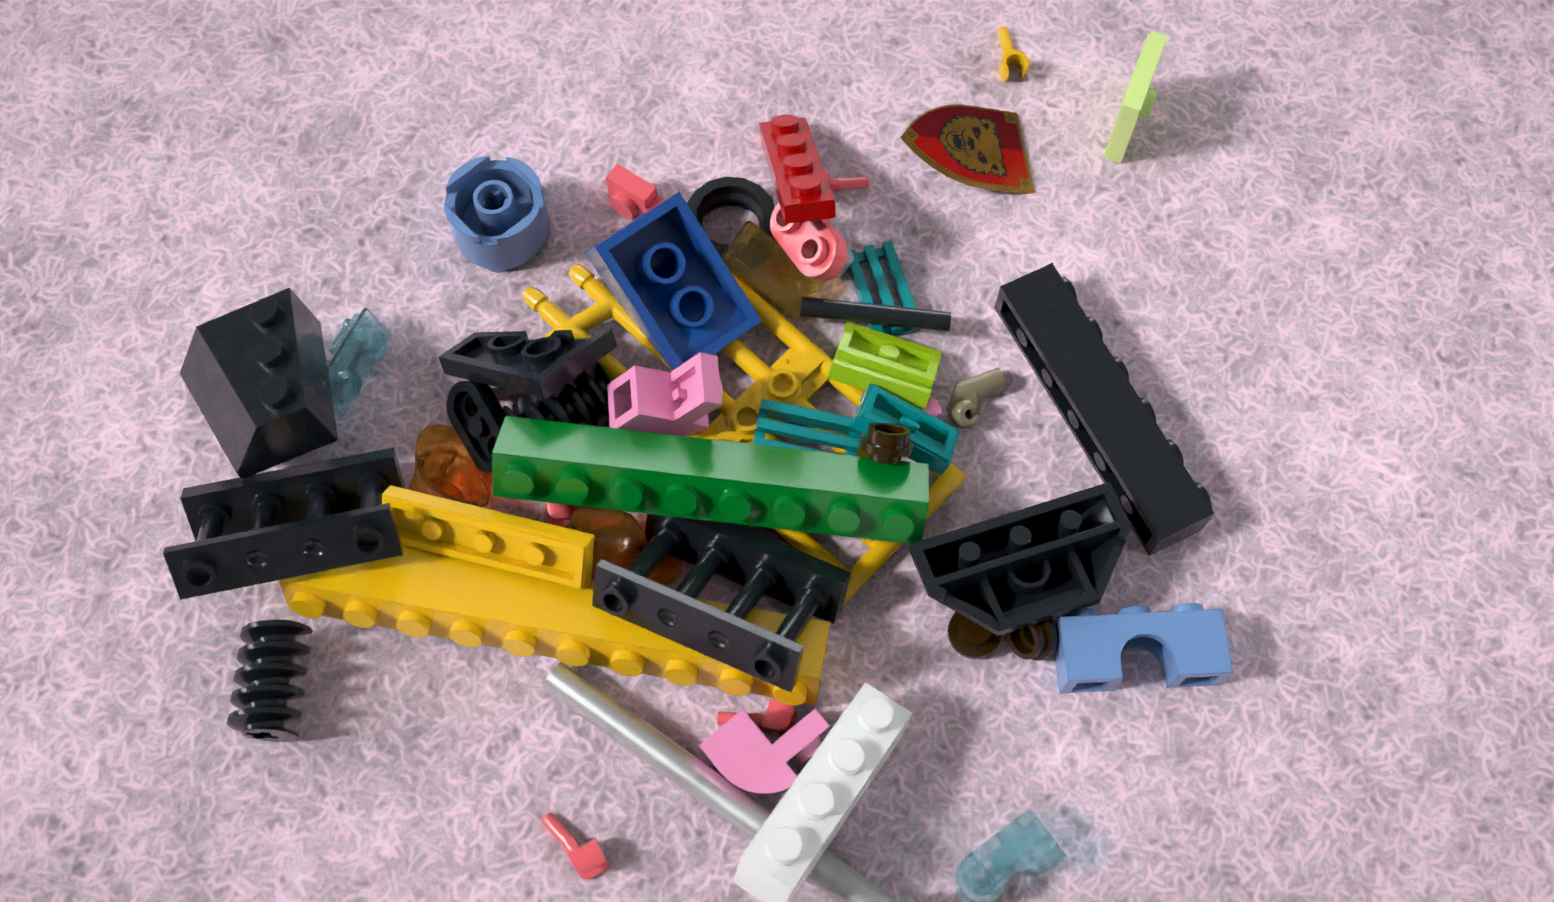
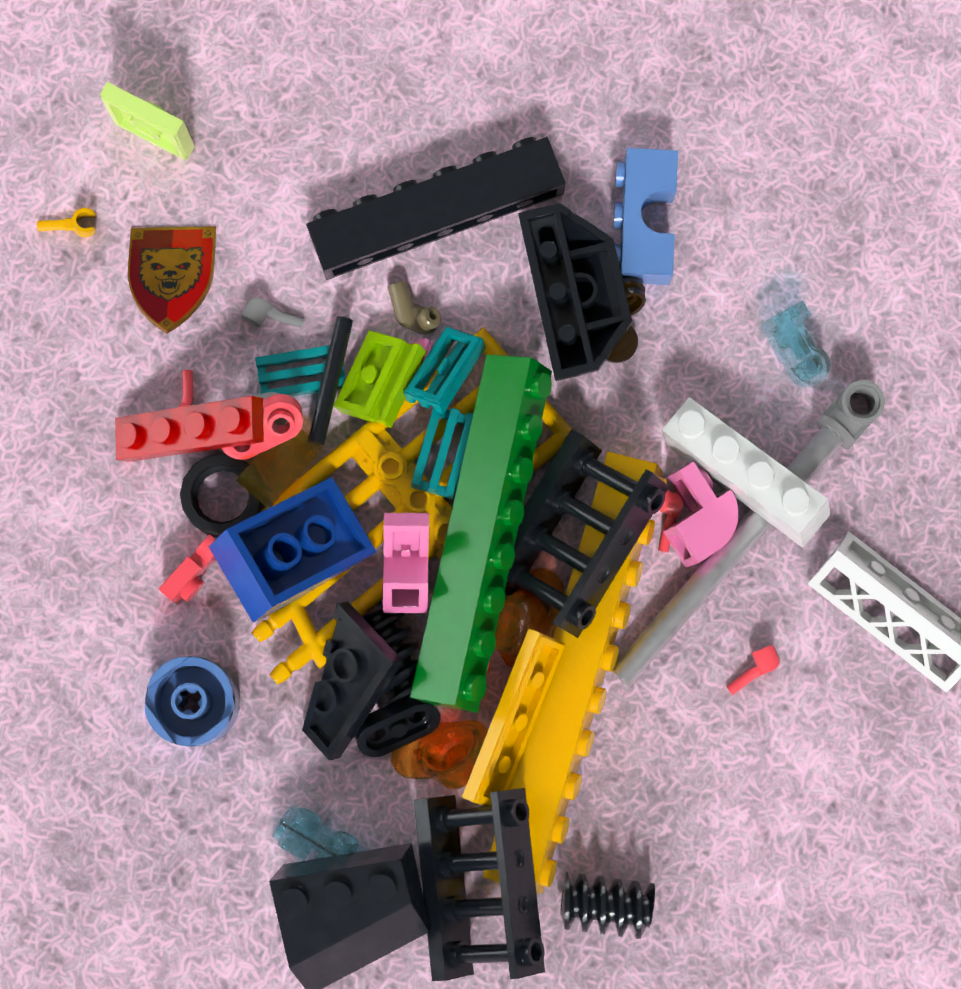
camera: 85 degrees left, 15 degrees up
(887, 442) = (468, 384): dark brown plate -> none
(943, 238) = (259, 309): none -> light grey hand

